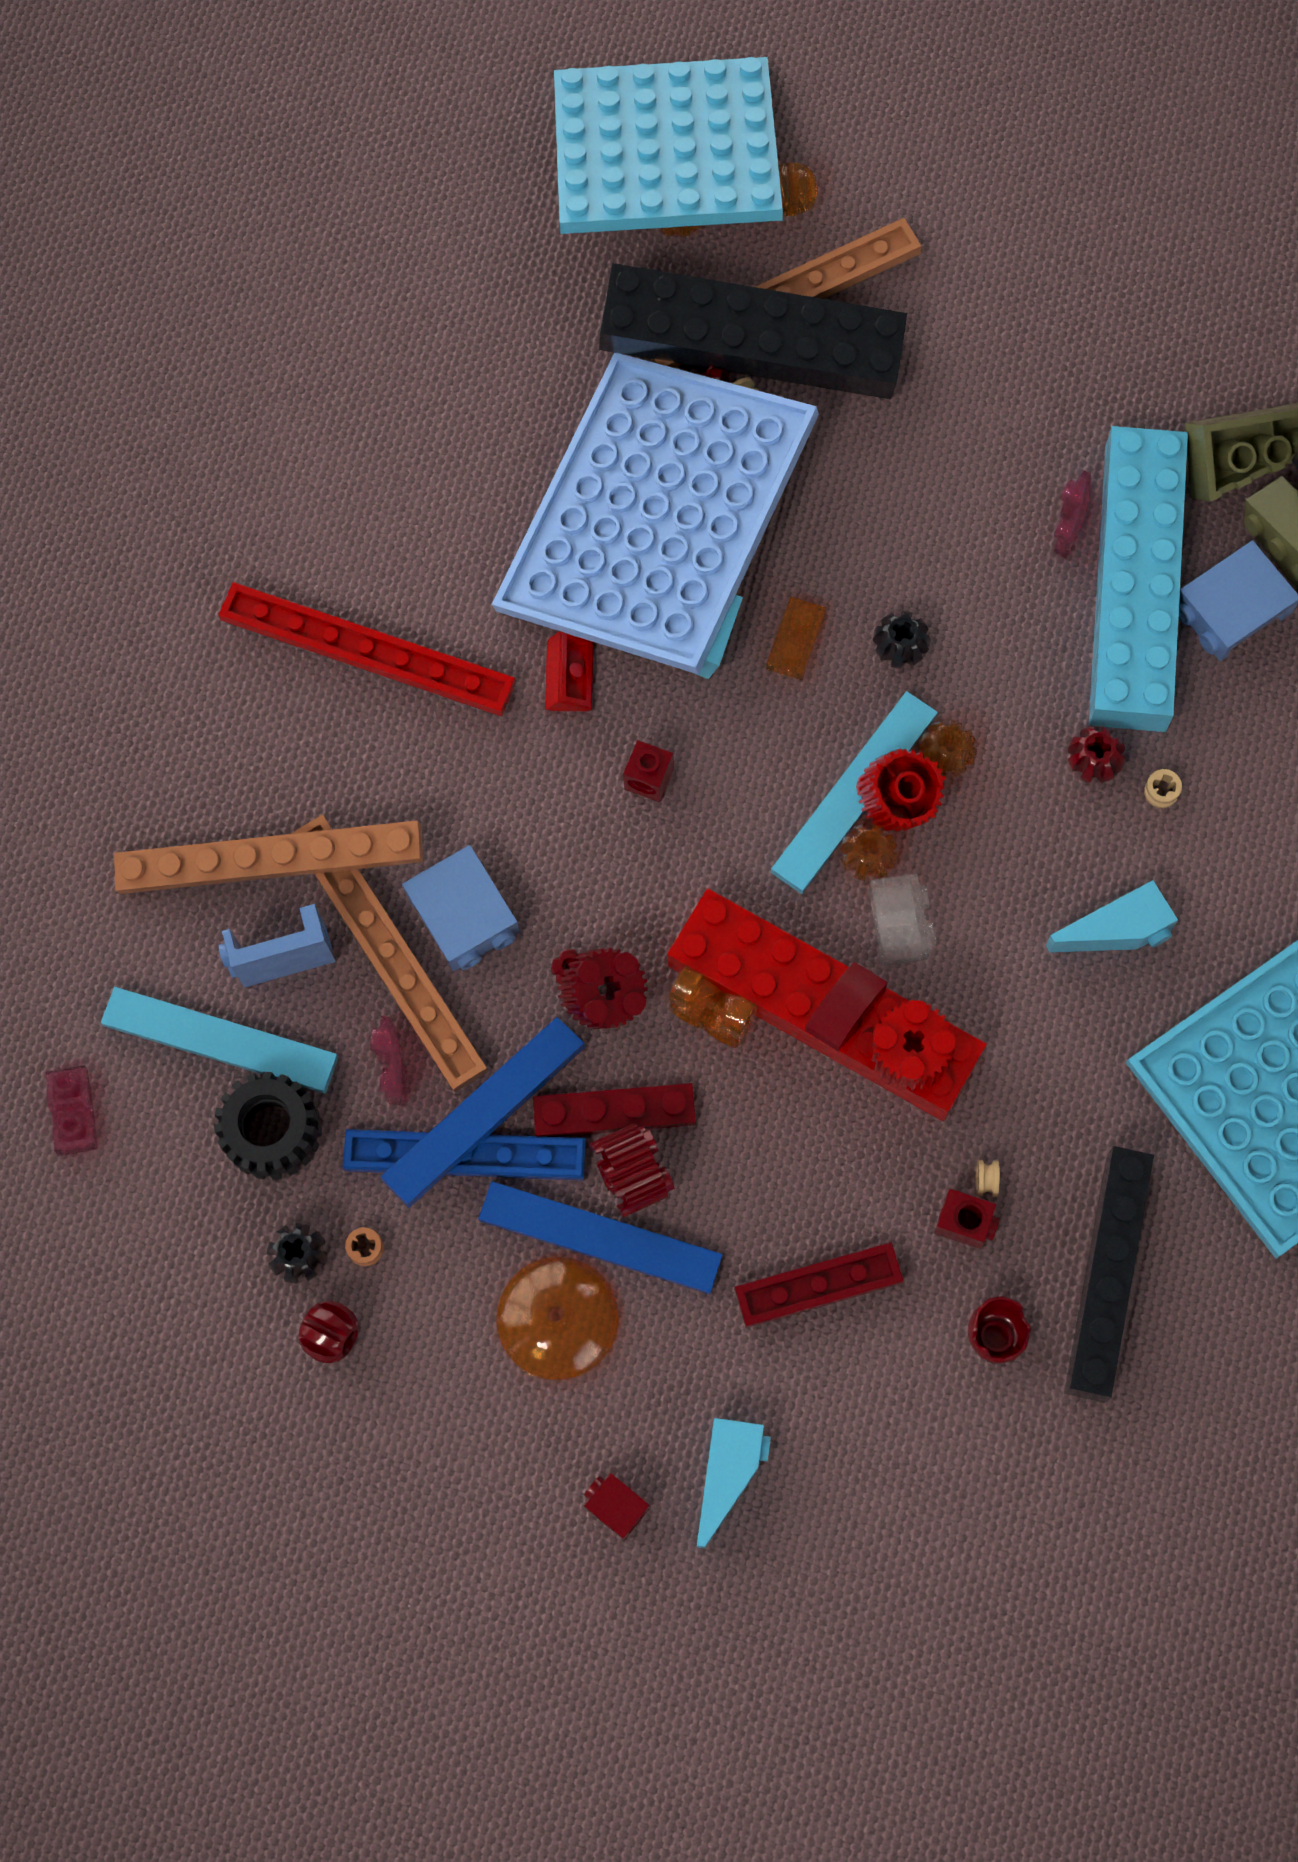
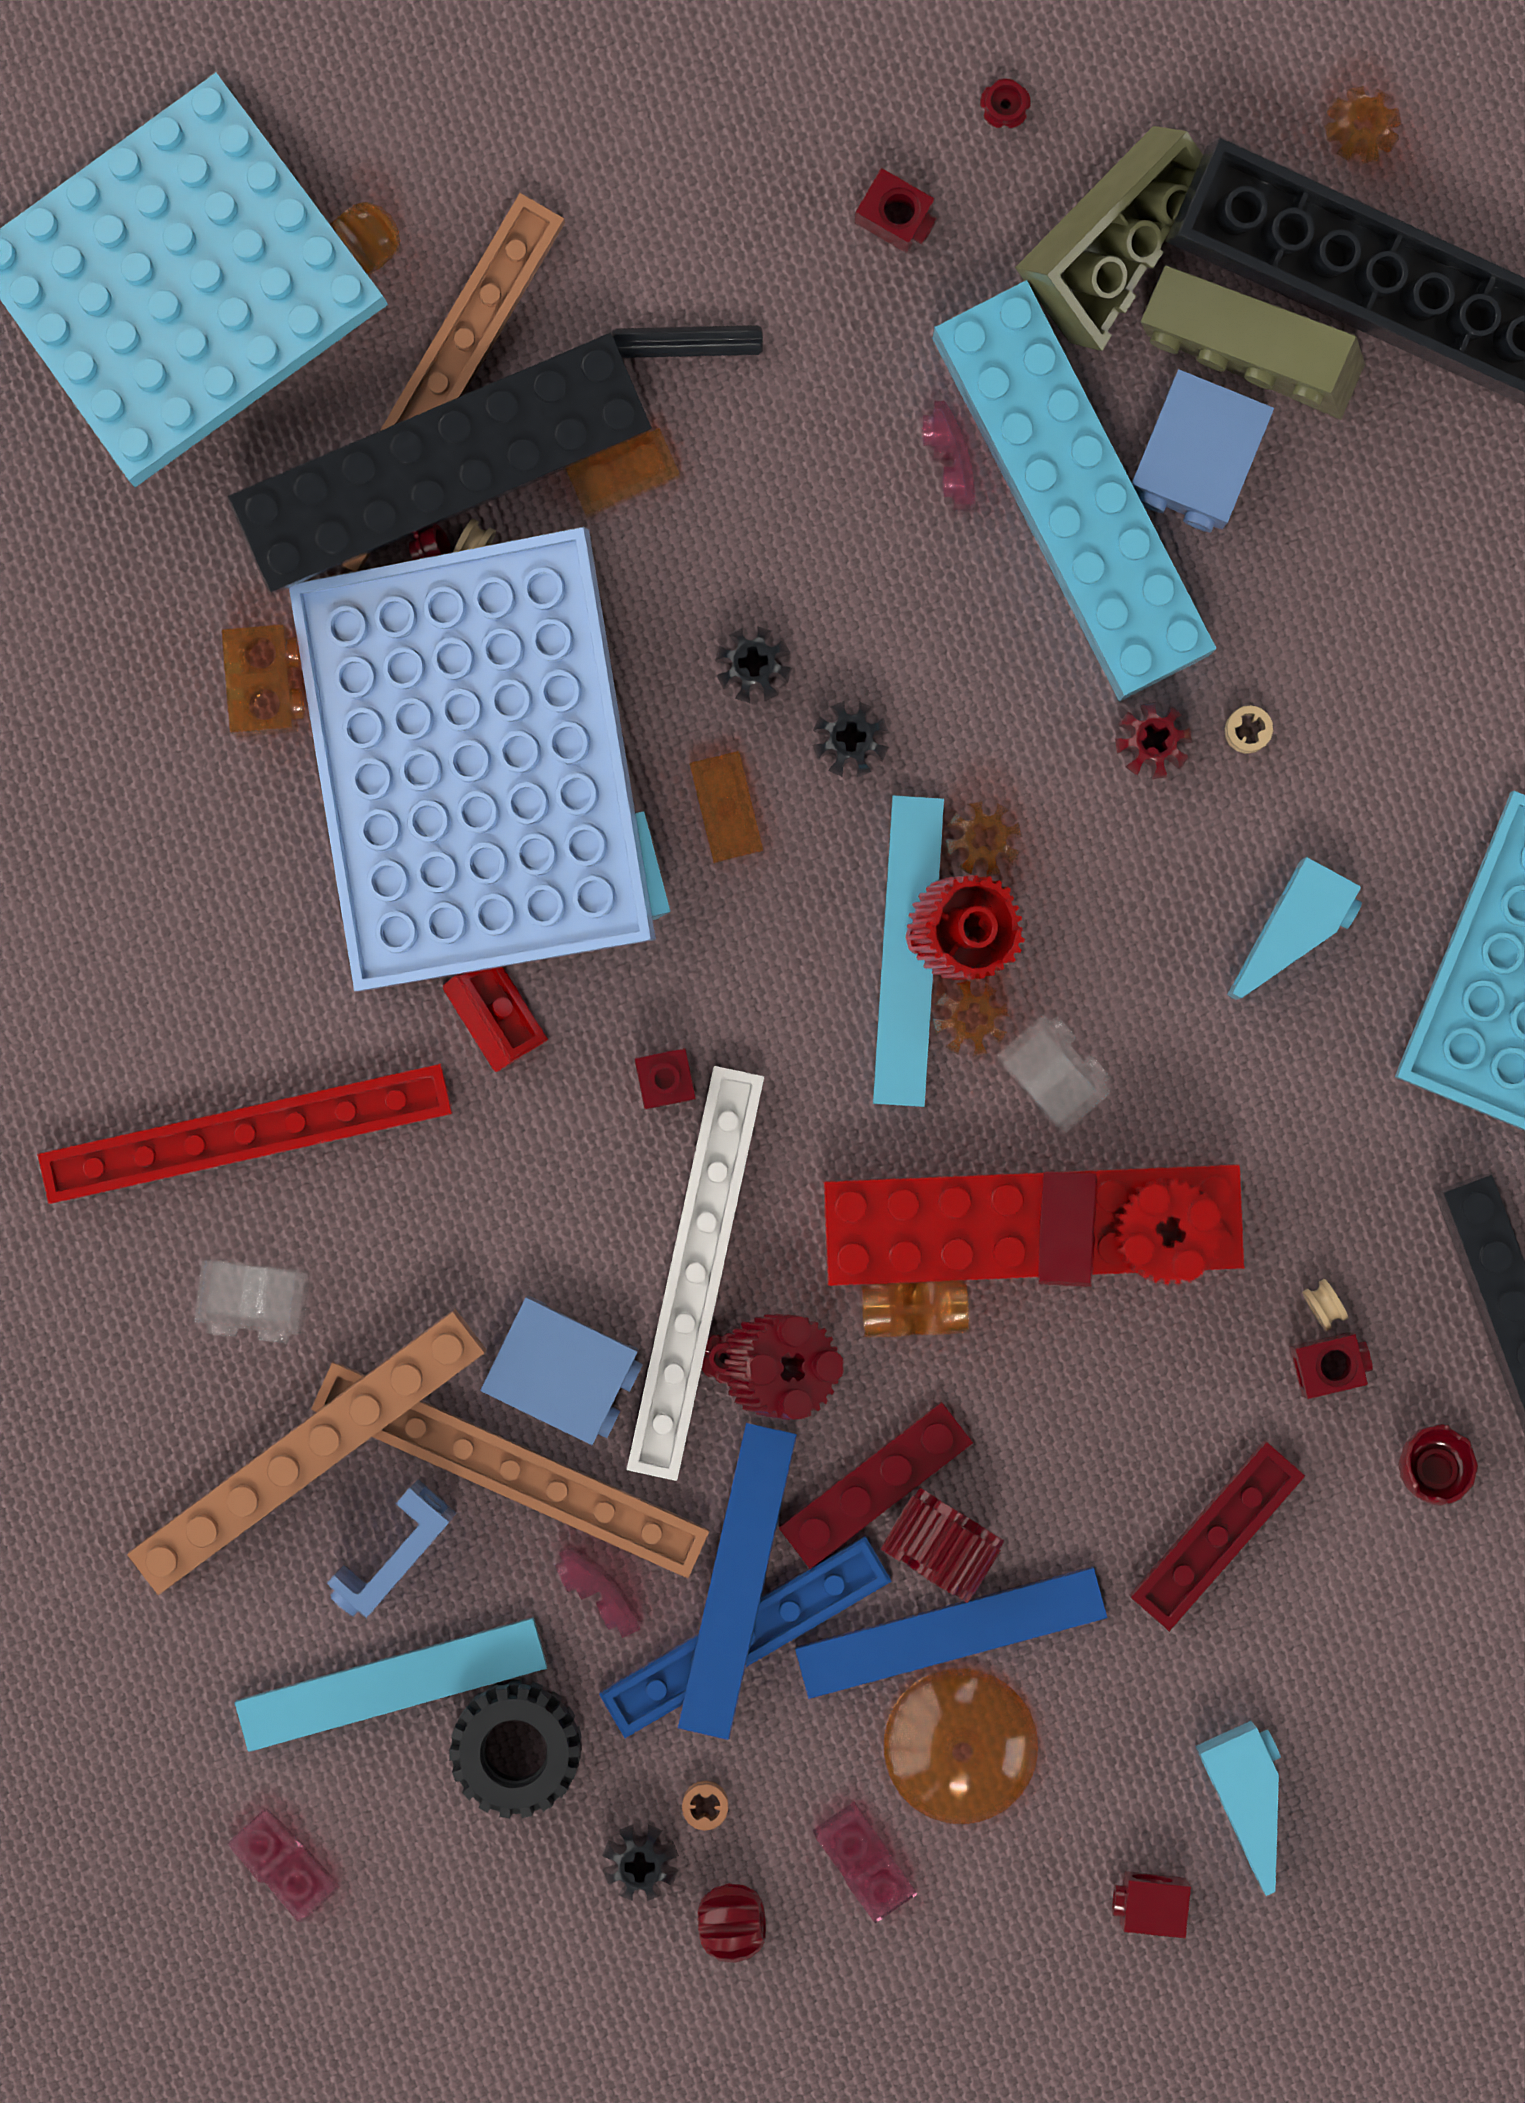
camera: 35 degrees left, 15 degrees up
(301, 746) = (252, 1298): none -> clear brick
(443, 1353) = (864, 1862): none -> clear pink slope
(552, 393) = (247, 683): none -> clear orange brick
(586, 904) = (695, 1273): none -> white plate
(861, 410) = (623, 472): none -> clear orange plate
(862, 550) = (764, 653): none -> black piece
(951, 359) = (689, 341): none -> black axle
(1129, 342) = (888, 190): none -> dark red brick
(1241, 329) = (1007, 90): none -> dark red plate

